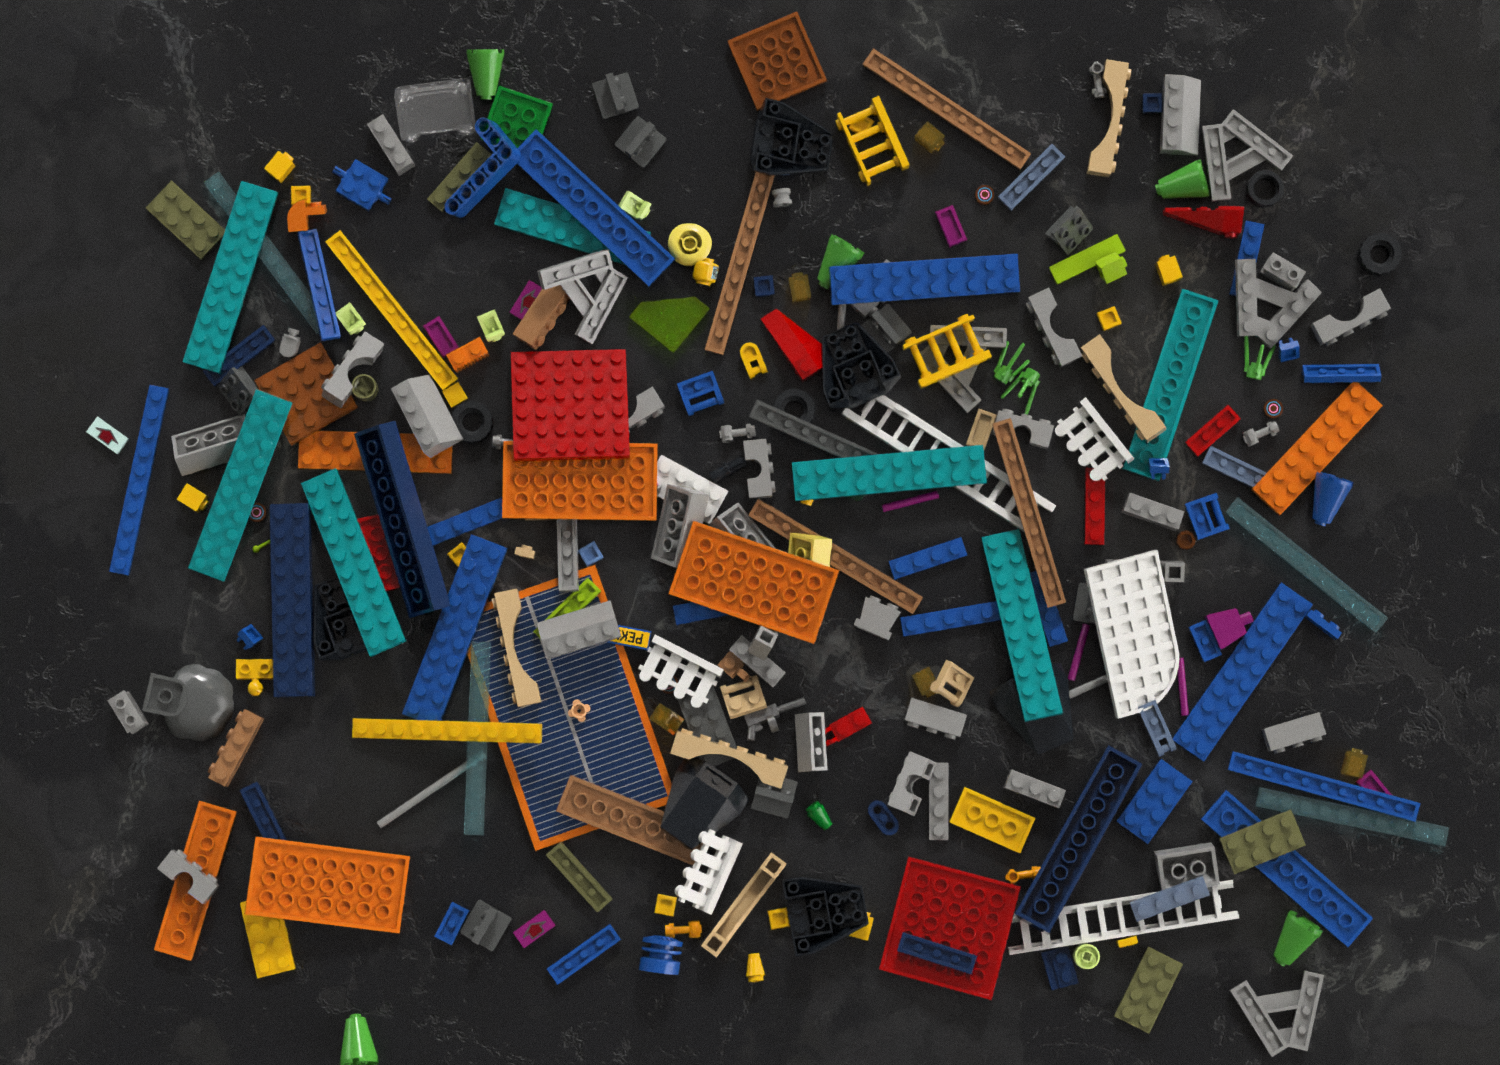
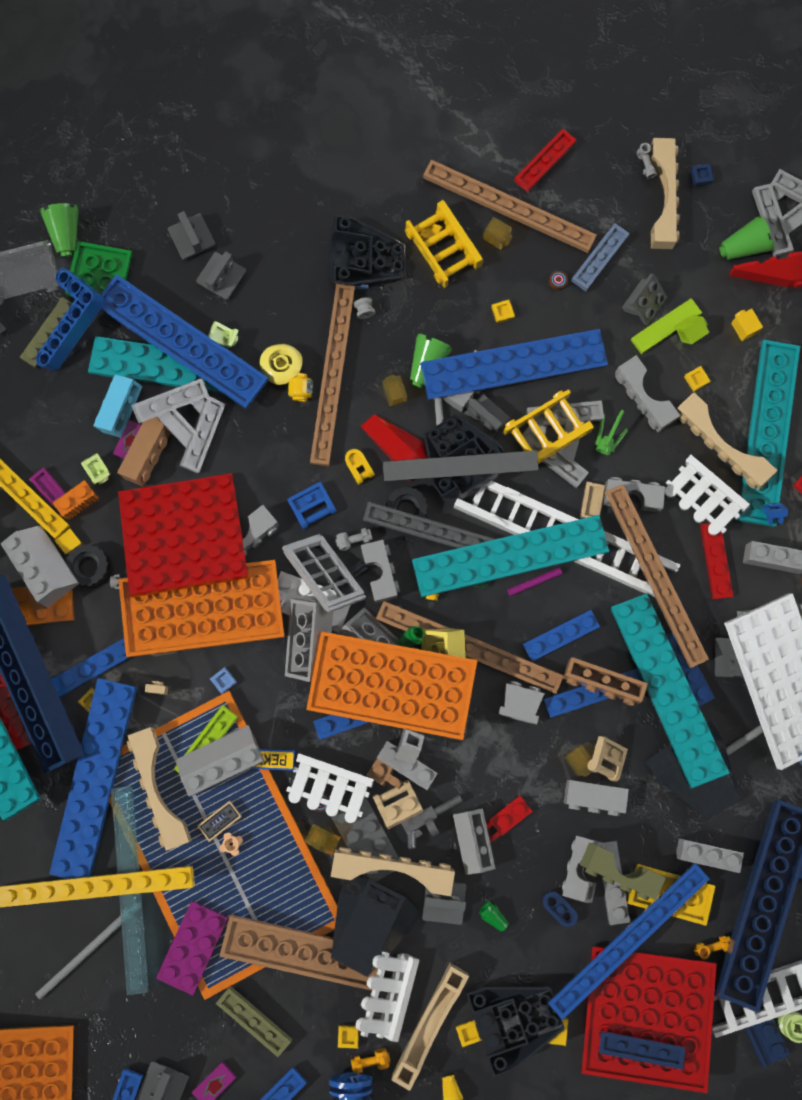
camera: 10 degrees left, 5 degrees down
(520, 264) = (117, 406): none -> medium azure brick
(530, 801) = (192, 948): none -> magenta plate
(567, 555) = (199, 685): light grey plate -> none
(570, 687) = (219, 821): none -> tile
(670, 319) = (272, 438): clear neon green plate -> none
(688, 432) = (343, 600): none -> light grey piece
(764, 286) = (359, 394): dark blue plate -> none
(777, 60) = (341, 183): dark orange plate -> none
(781, 538) = (411, 637): none -> green cone
(852, 378) = (461, 466): none -> dark grey tile
(922, 220) = (503, 311): none -> yellow tile
(942, 853) = (628, 941): none -> blue plate
(951, 226) = (530, 313): magenta tile -> none
(960, 608) = (605, 681): none -> medium nougat brick
(965, 802) = (601, 861): none -> olive arch
(991, 64) = (545, 160): none -> red plate
(1029, 378) = (632, 447): bright green plant -> none
(1078, 652) = (727, 708): magenta bar -> none
(1180, 115) = (730, 182): light grey slope -> none

